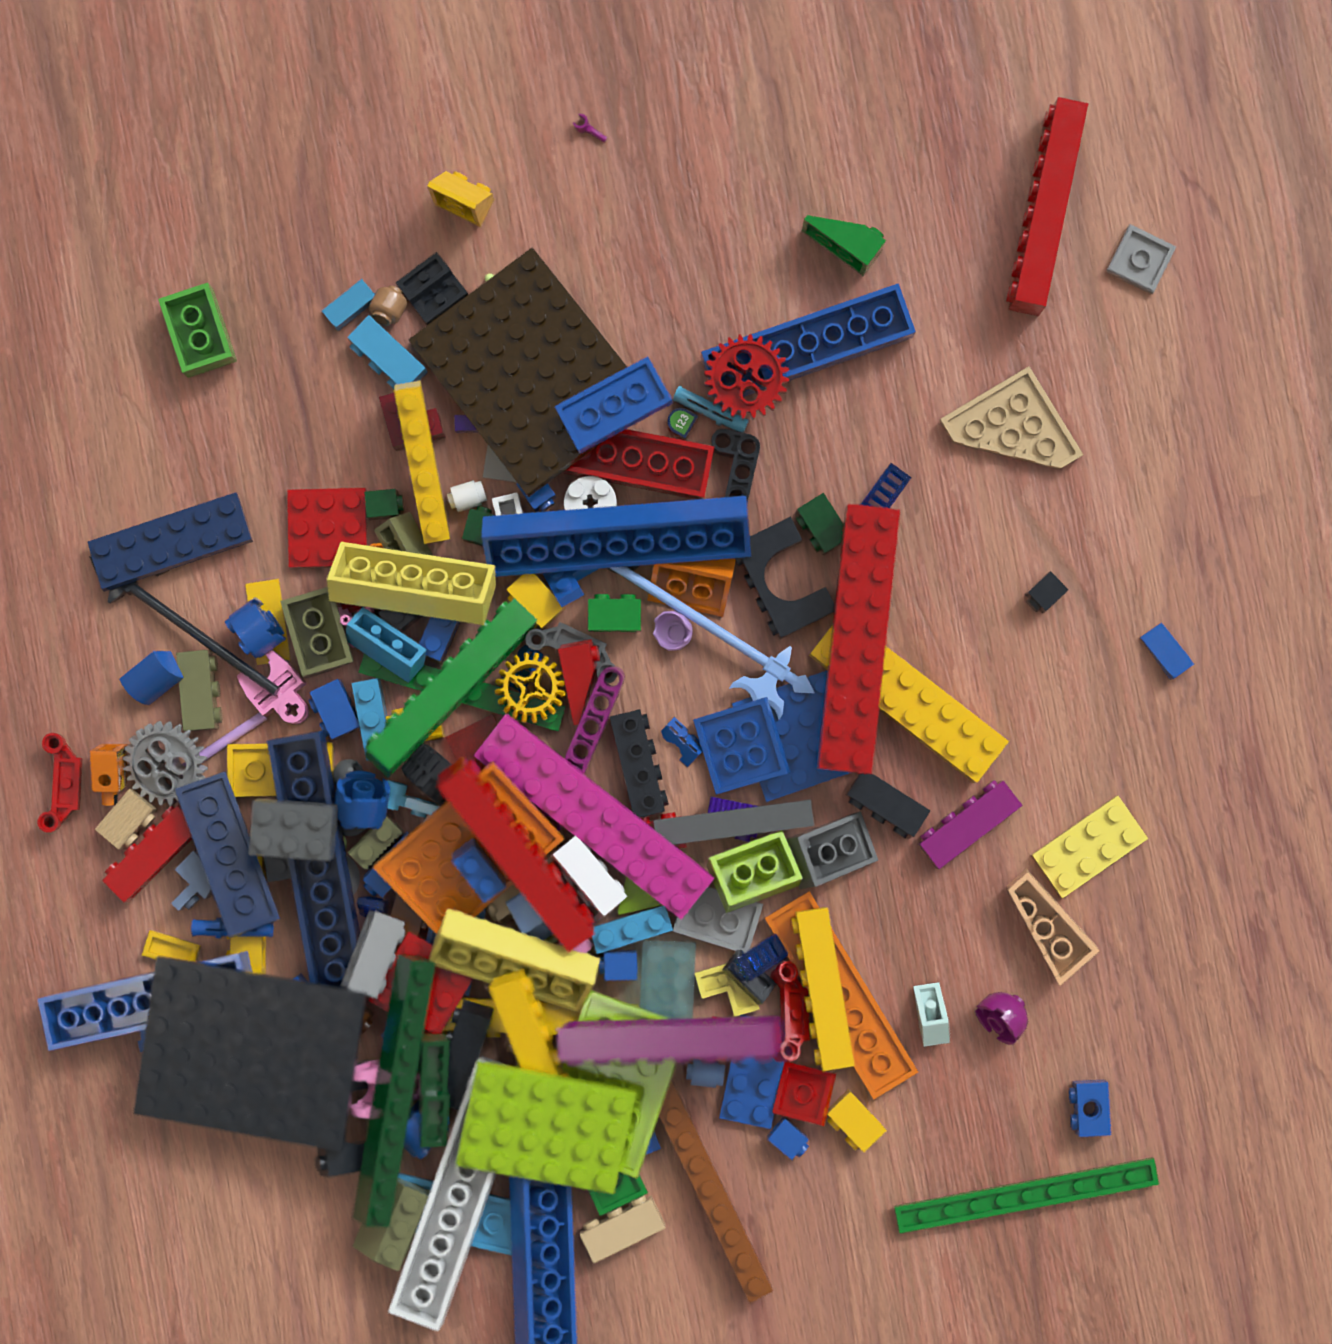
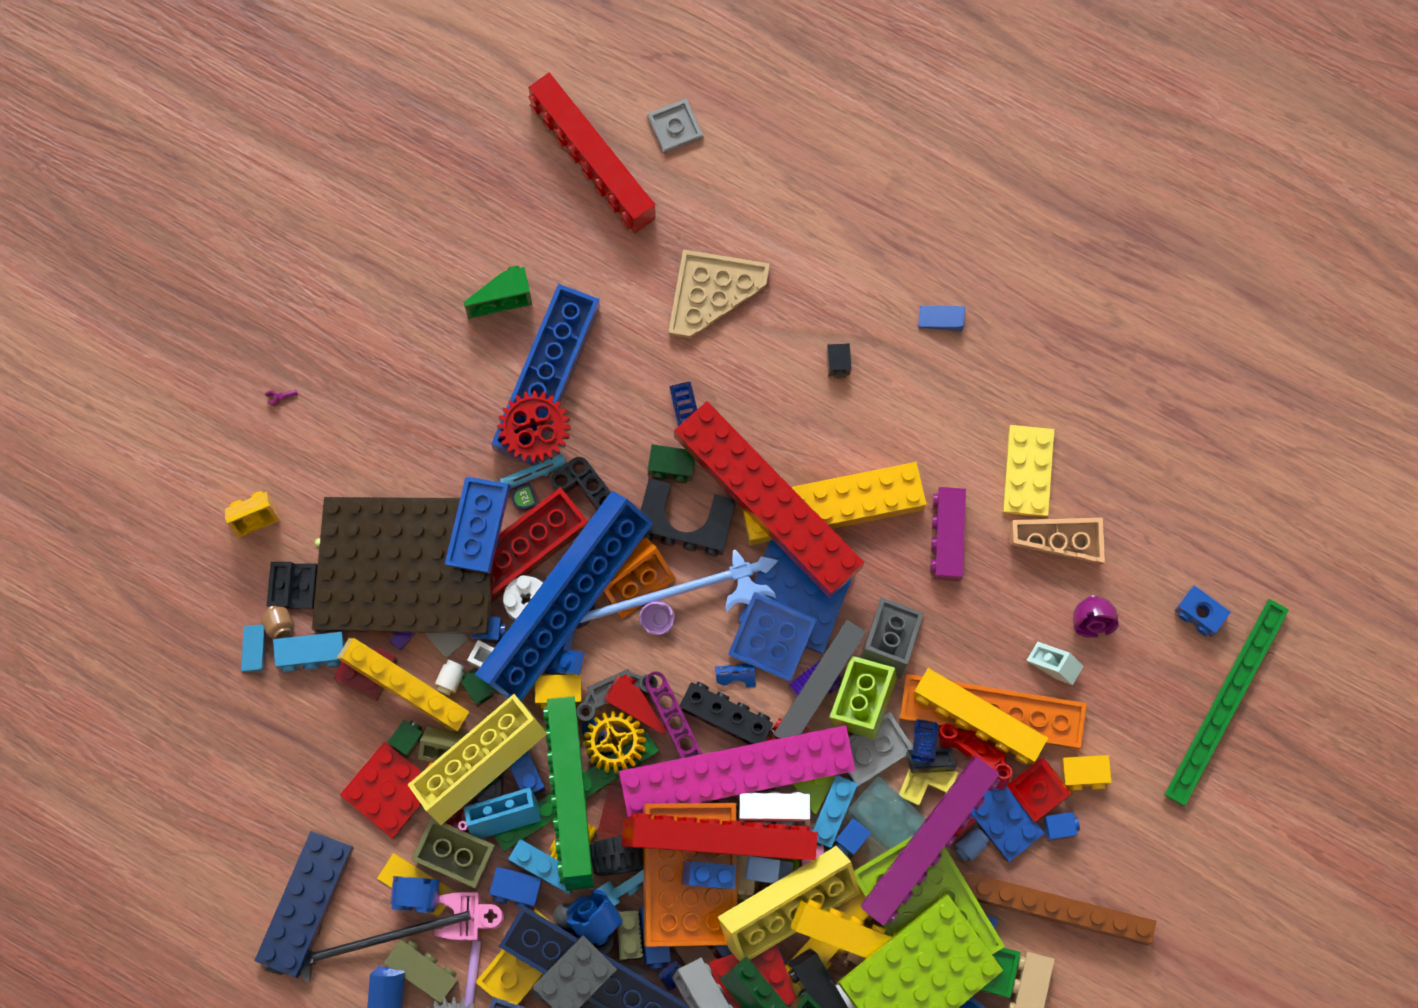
camera: 55 degrees left, 10 degrees down
(197, 330) = (180, 762): bright green brick -> none
(614, 614) = (613, 646): green brick -> none
(887, 804) = (891, 575): black brick -> none

